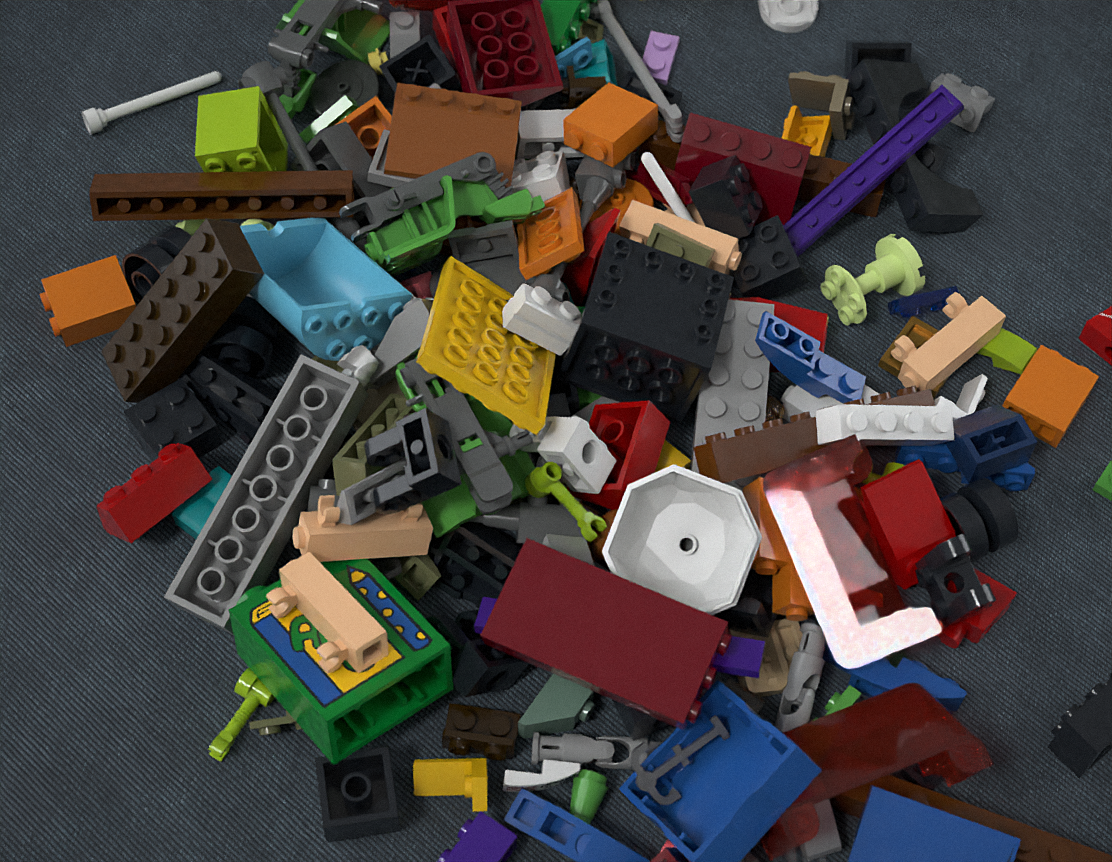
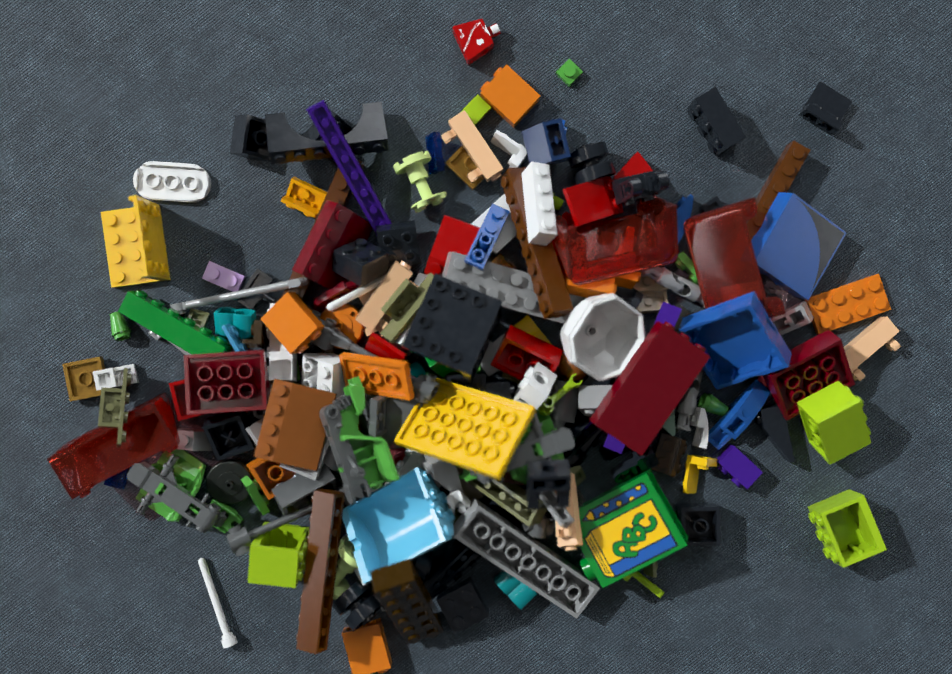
camera: 80 degrees left, 30 degrees up
(152, 492) = (512, 620): red slope -> none
(333, 612) = (619, 535): light nougat brick -> none
(376, 59) = (206, 458): light yellow plate -> none
(541, 318) = (446, 392): white brick -> none
(647, 780) = (719, 375): flat silver piece -> none
(825, 94) = (292, 171): dark tan bracket -> none
(974, 98) = (285, 91): light grey bracket -> none

